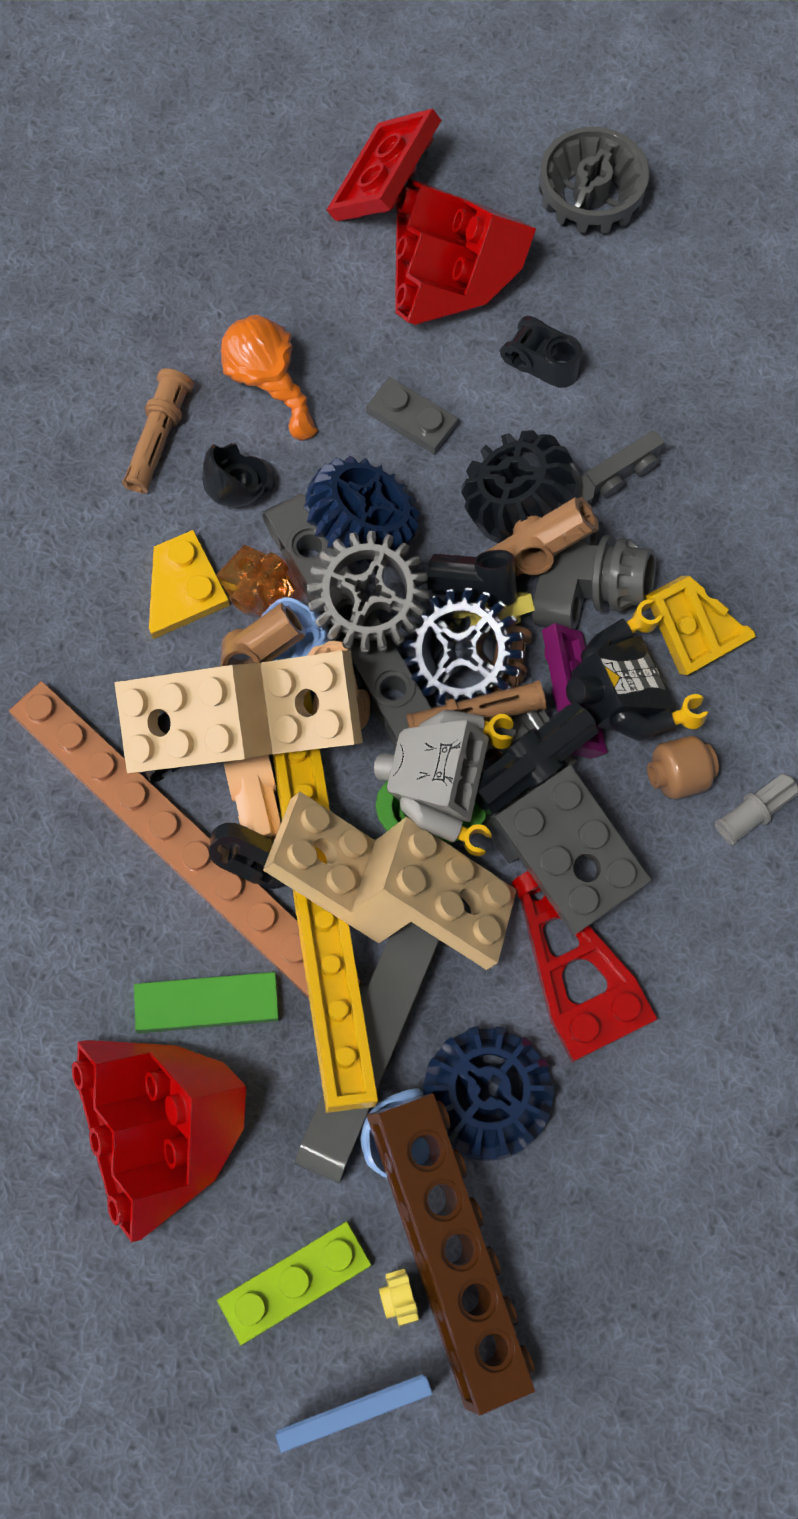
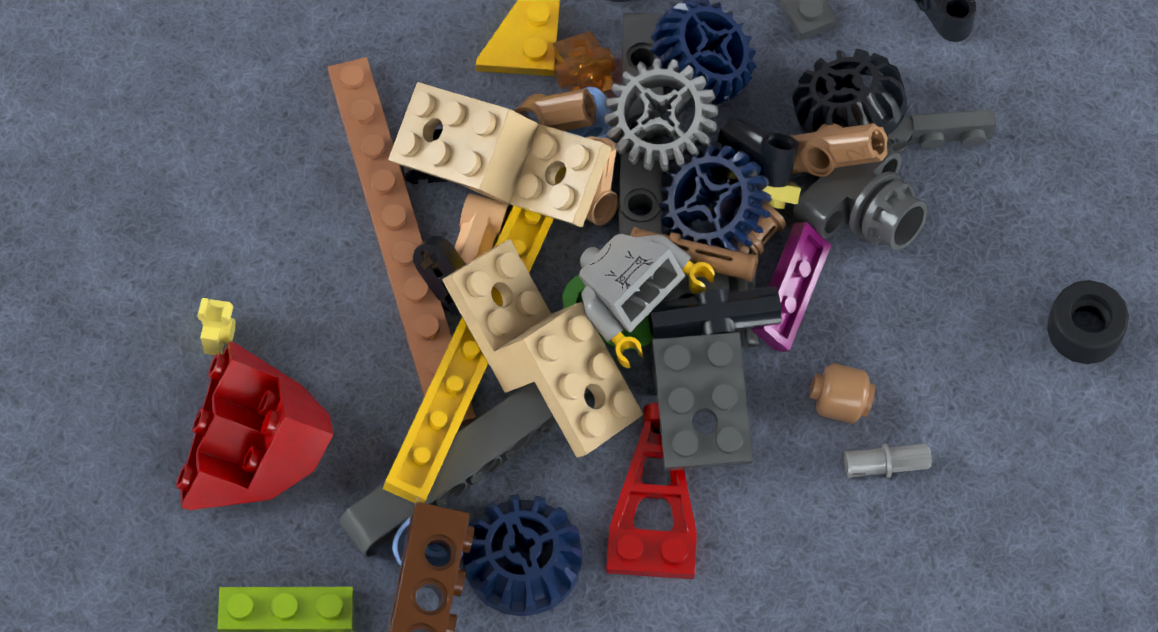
camera: 30 degrees right, 5 degrees down
(56, 1032) = (217, 325): none -> light yellow plate
(206, 1002) = (346, 369): bright green tile -> none
(623, 685) = (832, 300): black torso -> none
(695, 624) = (927, 286): yellow wing -> none

